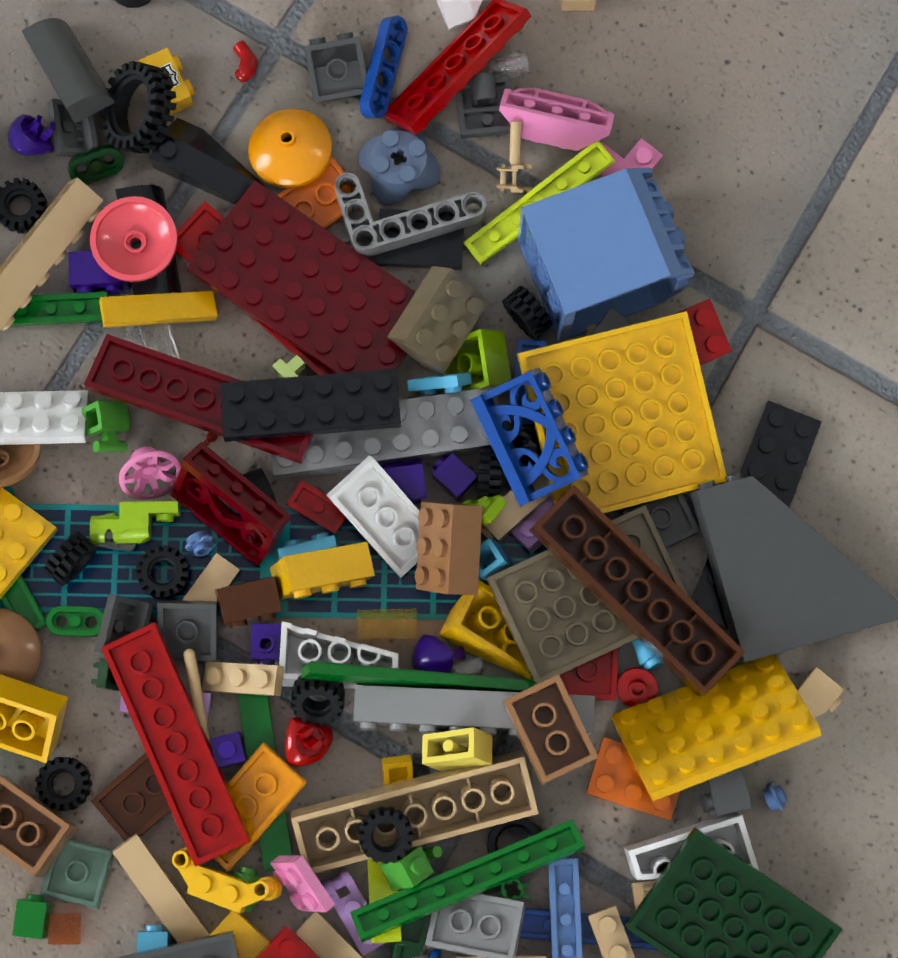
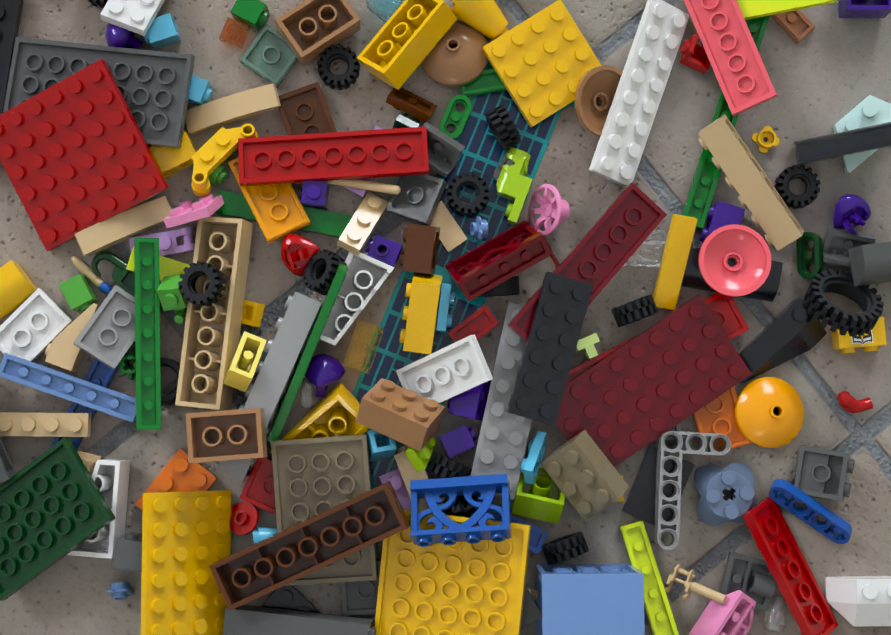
camera: 115 degrees right, 5 degrees up
(79, 678) = (411, 104): none -> reddish brown plate
(107, 421) = (599, 191): bright green brick -> none
(231, 332) = (634, 310): none -> black tyre

